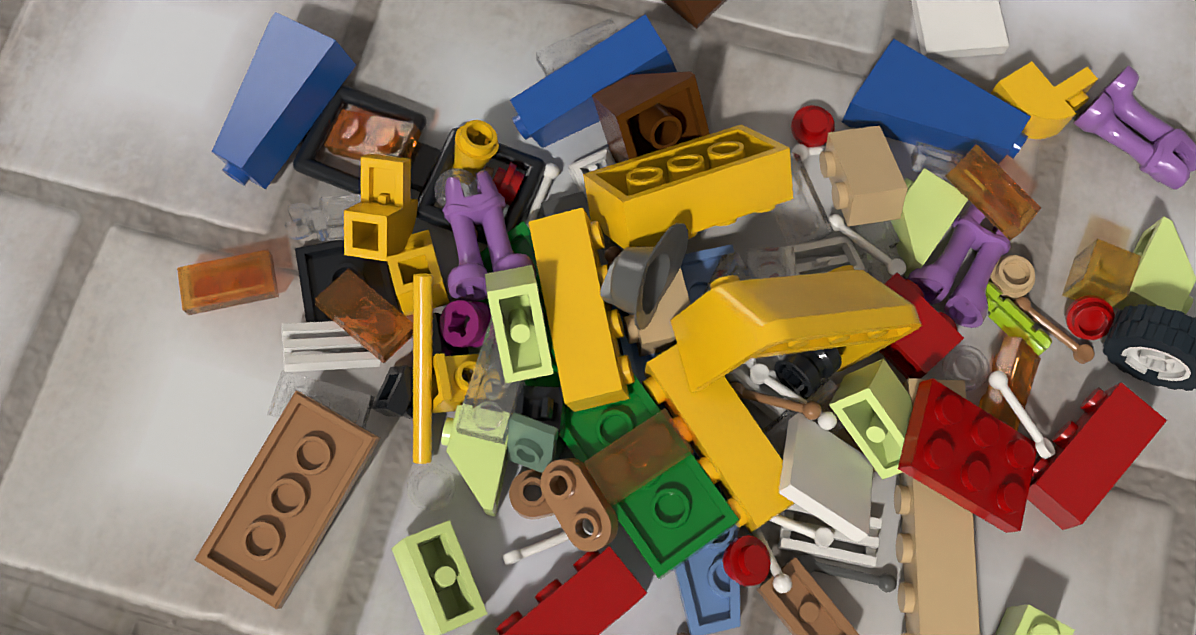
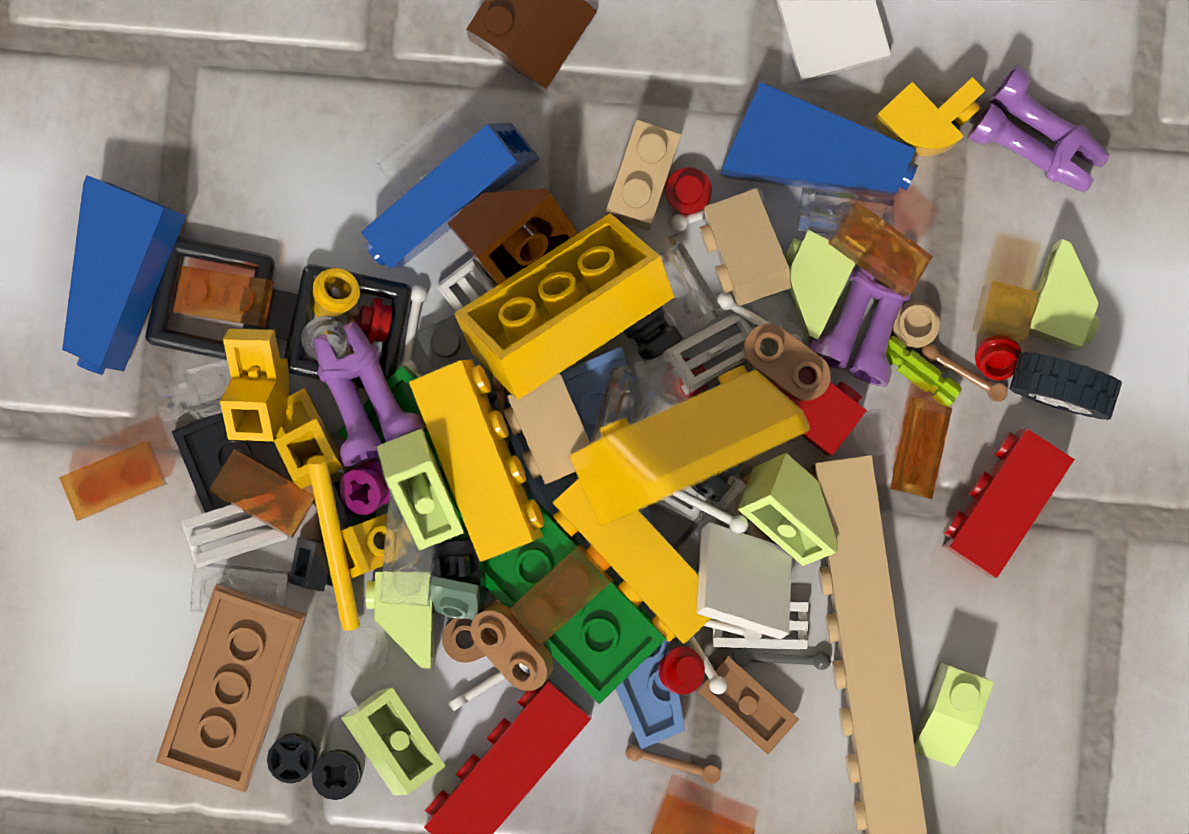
camera: 10 degrees left, 15 degrees up
(327, 575) = (286, 763): none -> black wheel
(386, 609) = (343, 768): none -> black wheel
(644, 274) = (532, 422): dark grey piece -> none
(760, 231) = (660, 342): none -> black wheel
(778, 94) = (643, 174): none -> tan brick
(811, 409) = (720, 519): medium nougat hinge -> none
(895, 272) = (786, 363): none -> medium nougat plate
(968, 456) = (880, 534): red plate -> none
(1043, 445) = (955, 506): white hinge -> none

